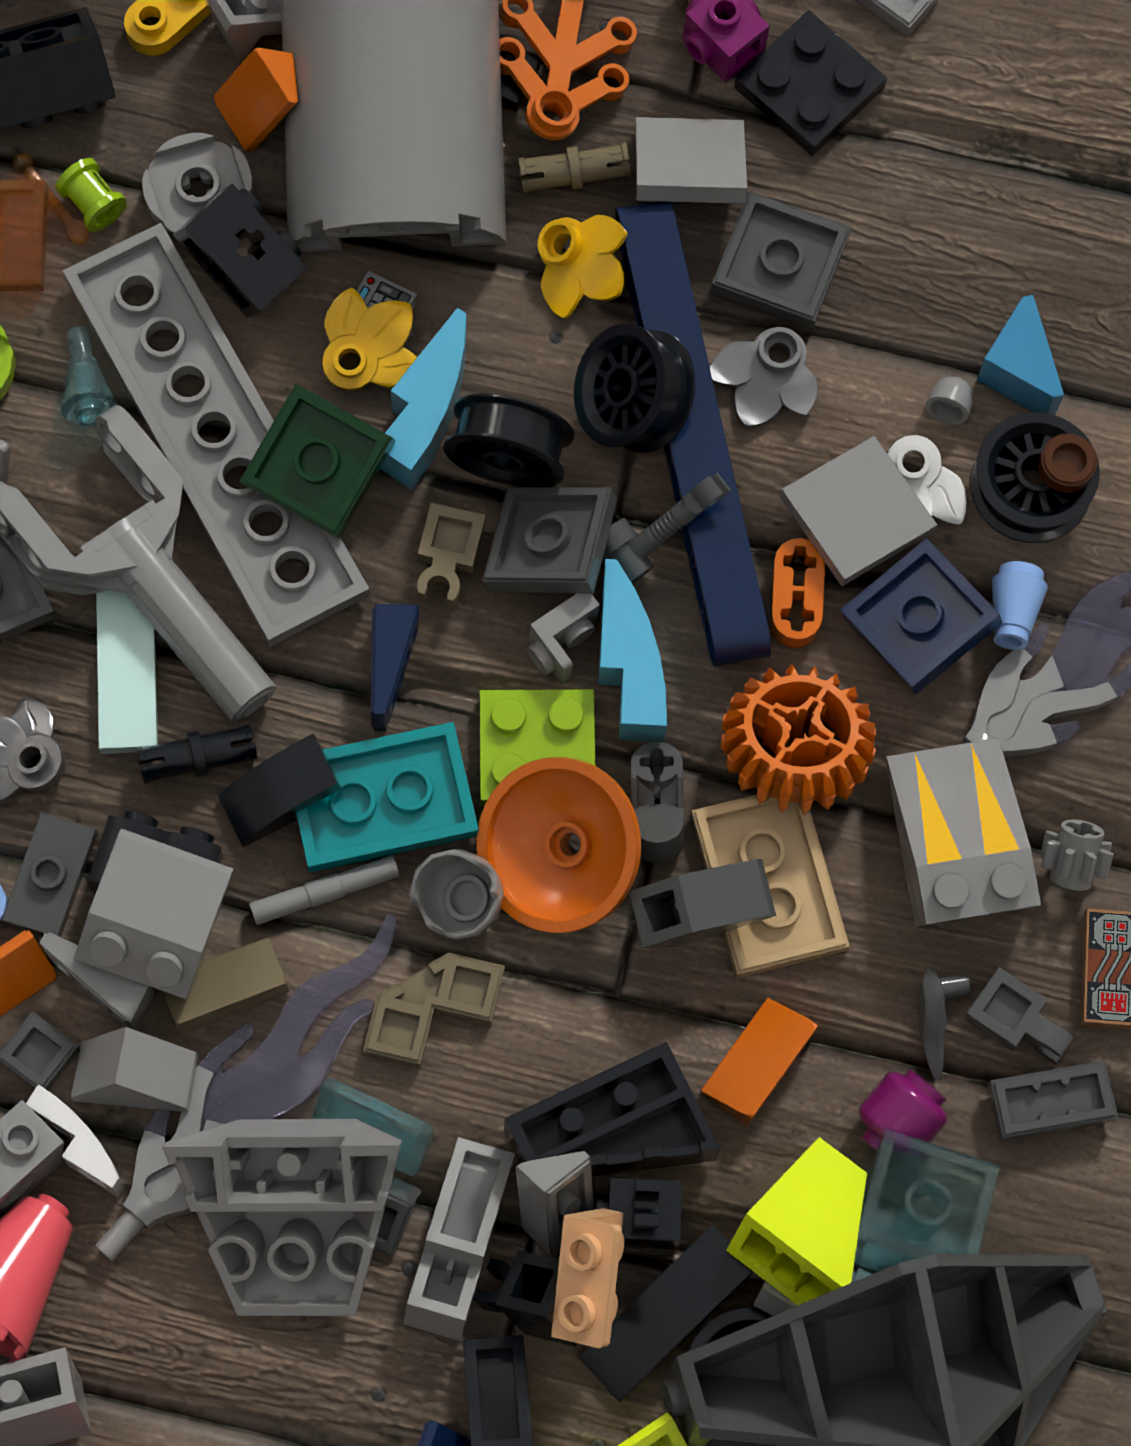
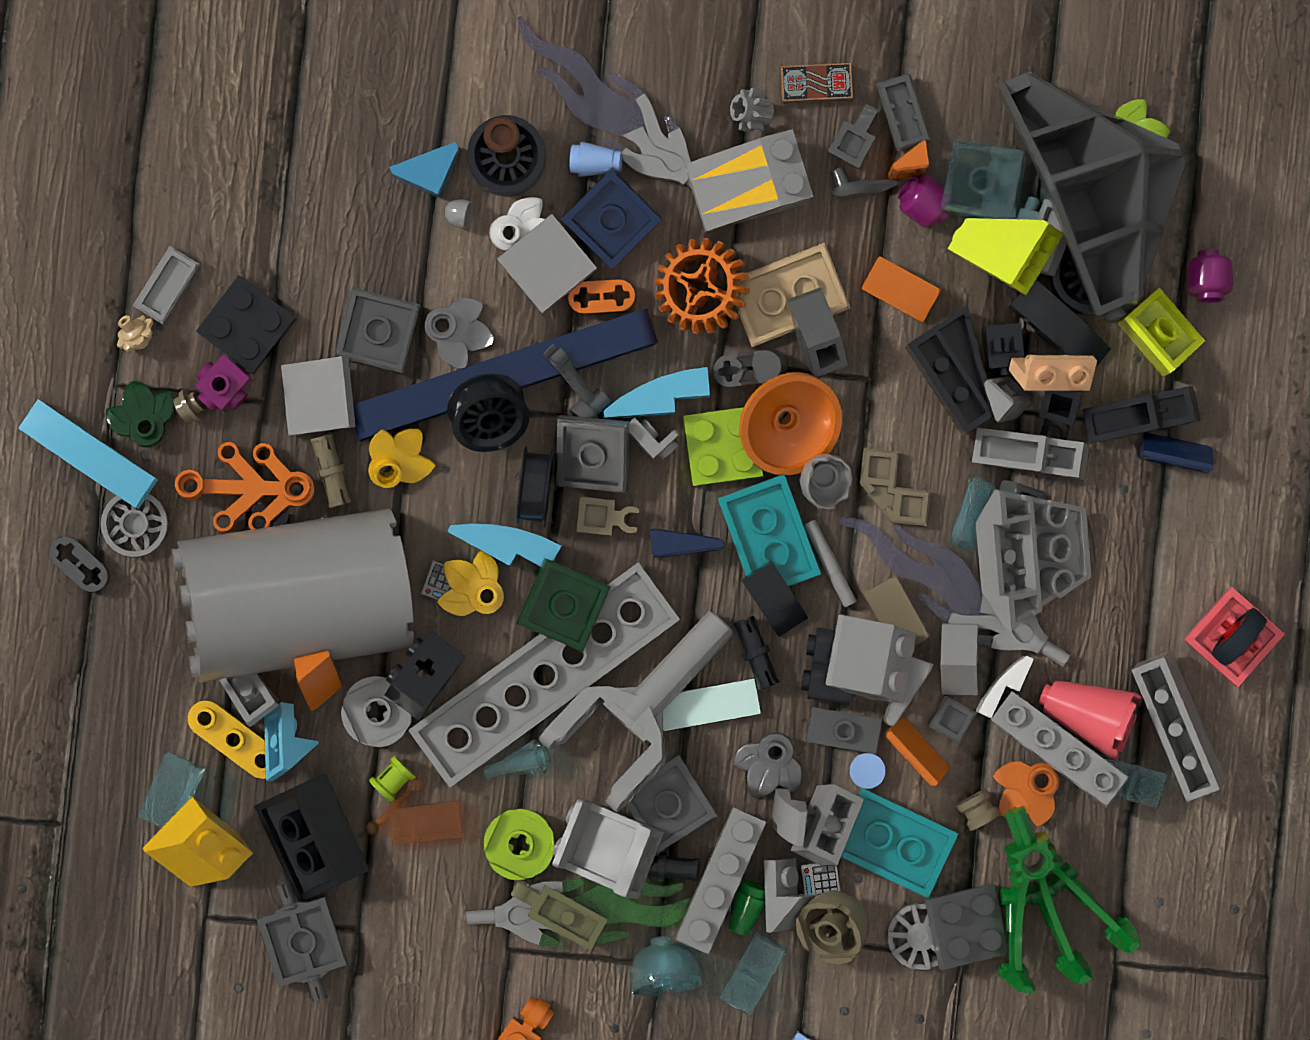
camera: 90 degrees left, 15 degrees up
(158, 42) = (281, 745): none -> medium azure slope
(969, 1091) = (911, 164): none -> orange slope

